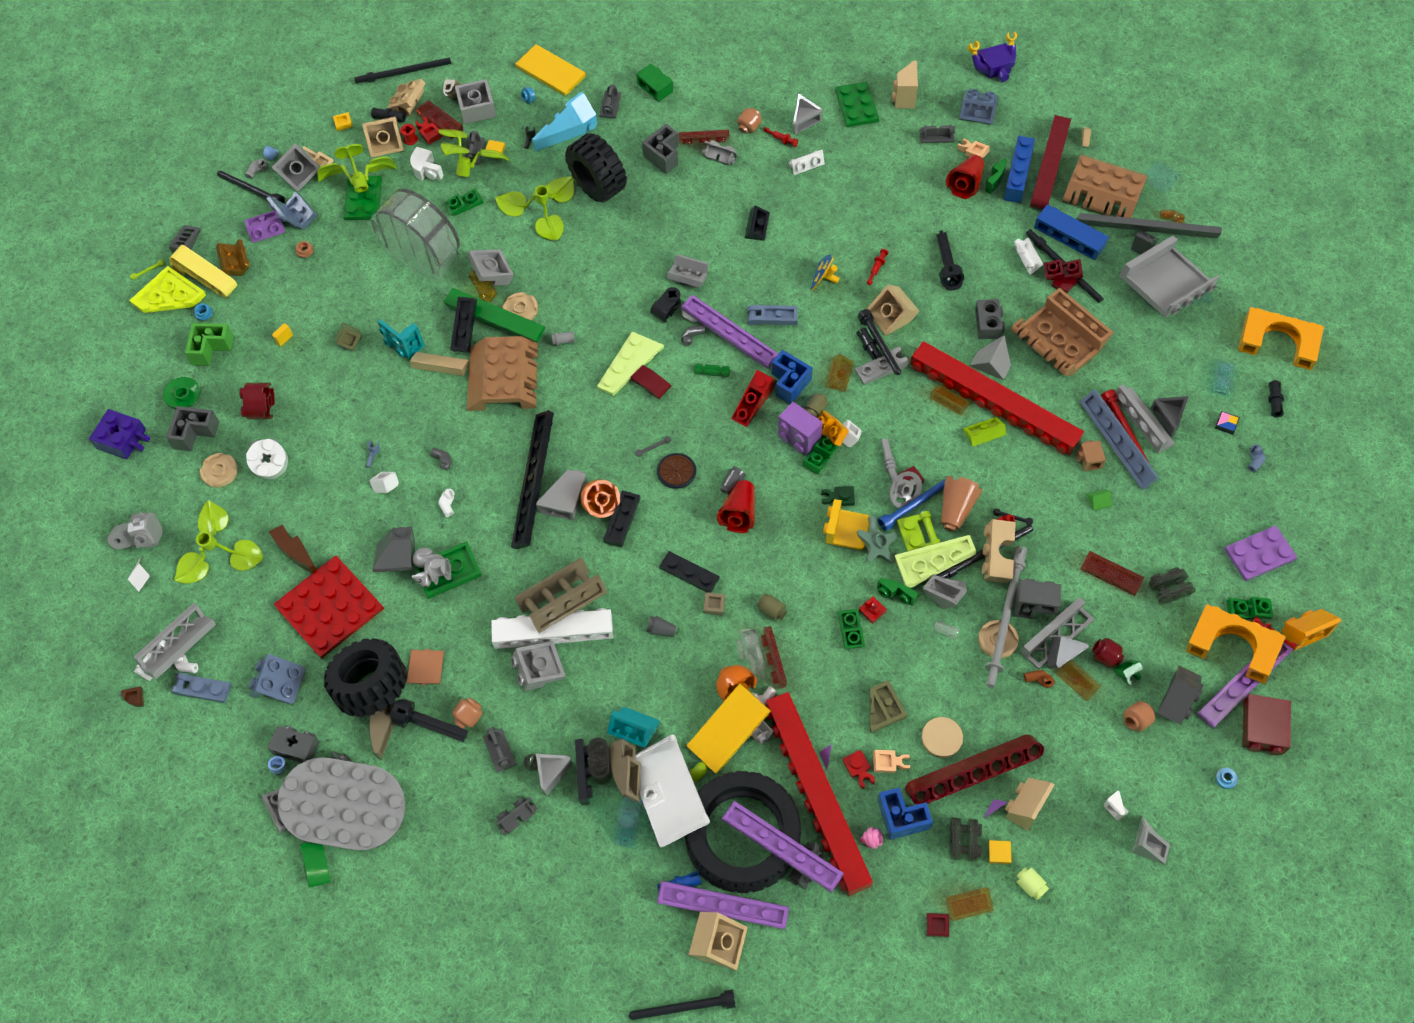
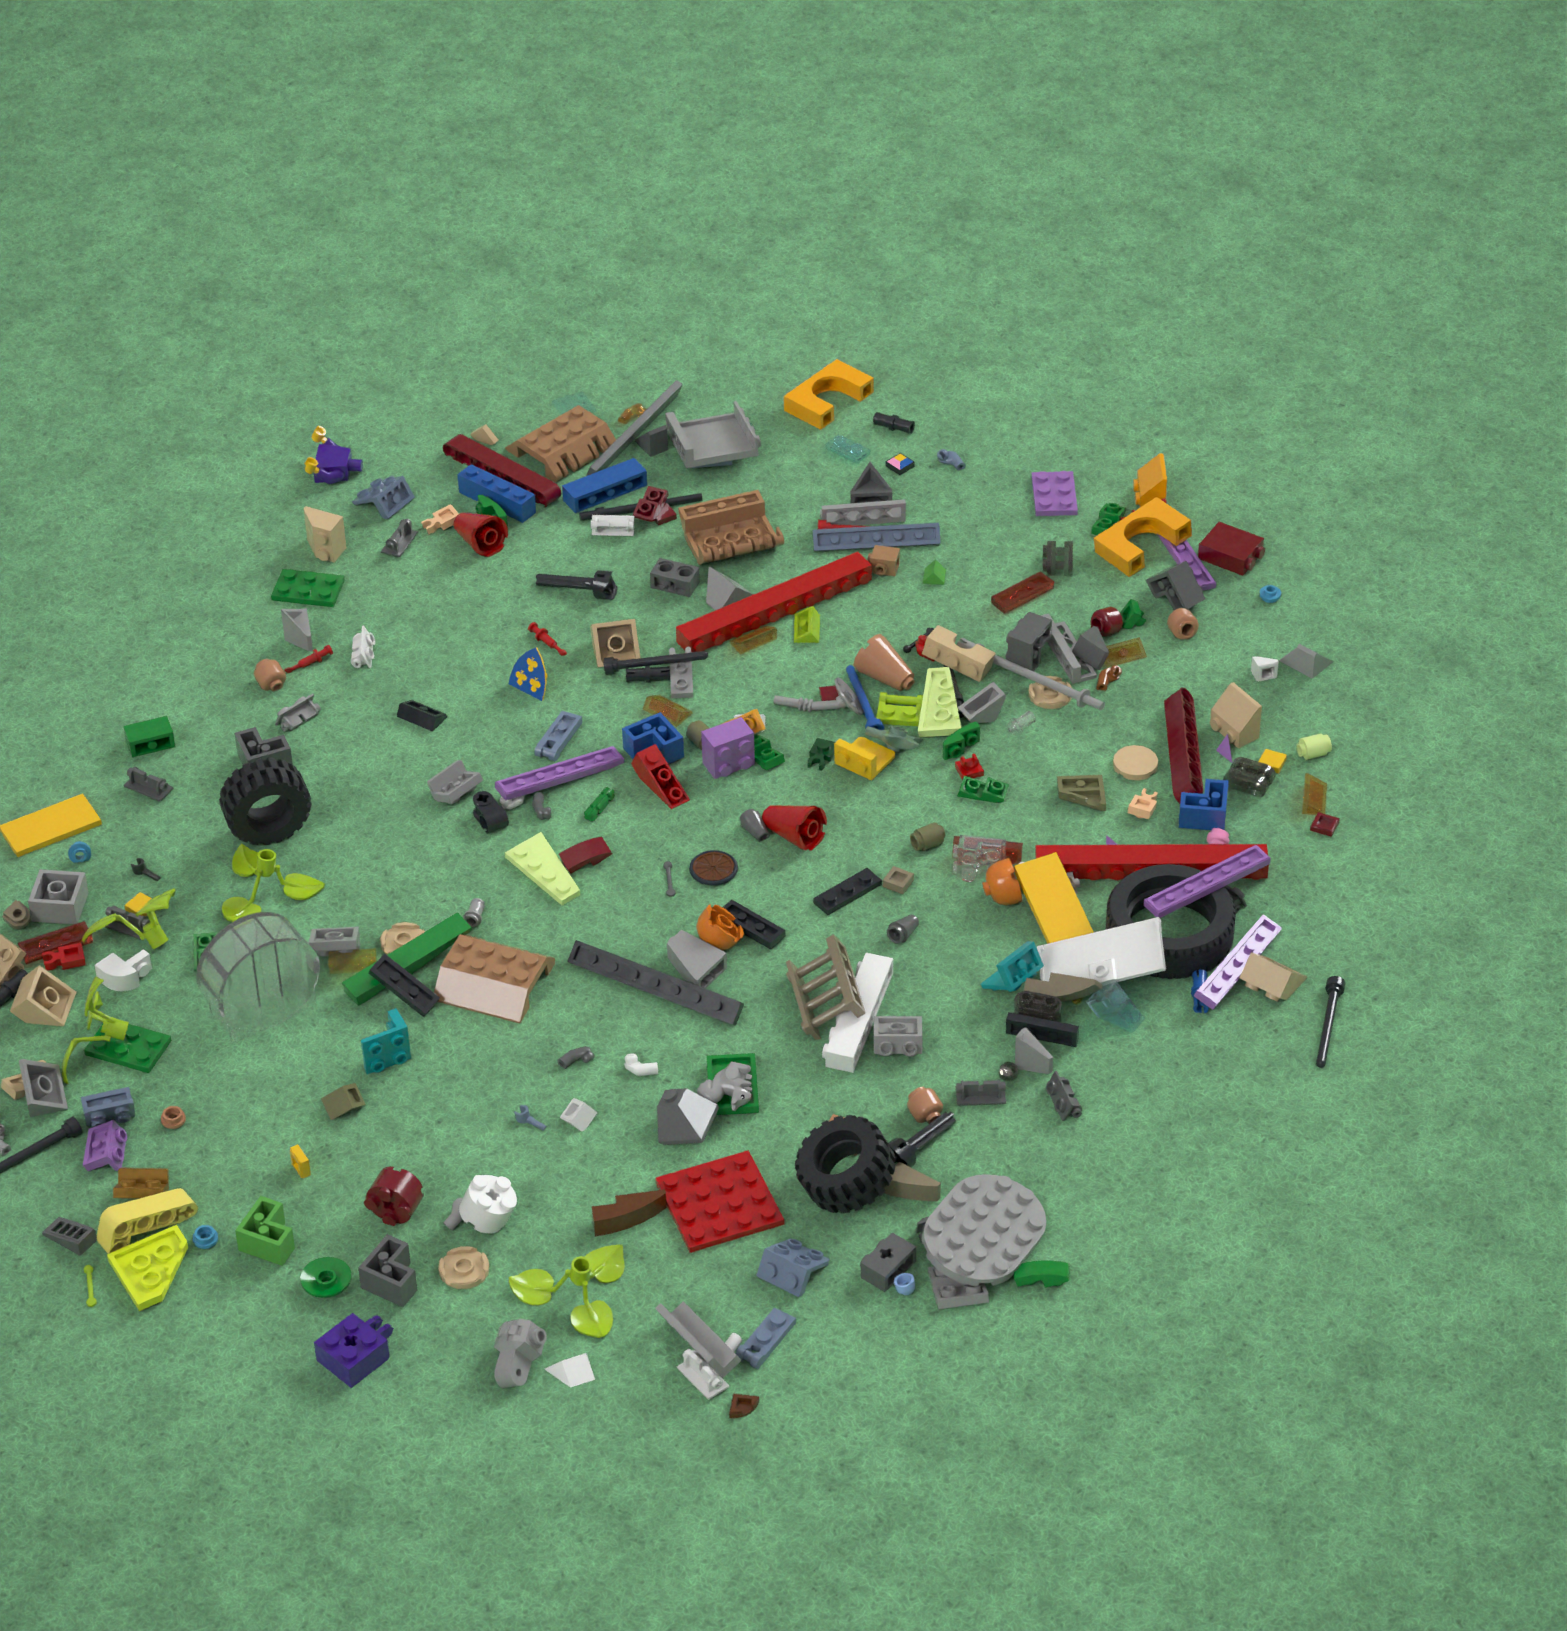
camera: 70 degrees left, 20 degrees down
(408, 132) = (55, 969): red bush -> none
(439, 363) = (439, 1029): tan slope -> none
(571, 122) = (160, 820): medium azure wedge -> none
(702, 136) = (266, 717): clear red plate -> none
(857, 766) = (1137, 830): red plate -> none

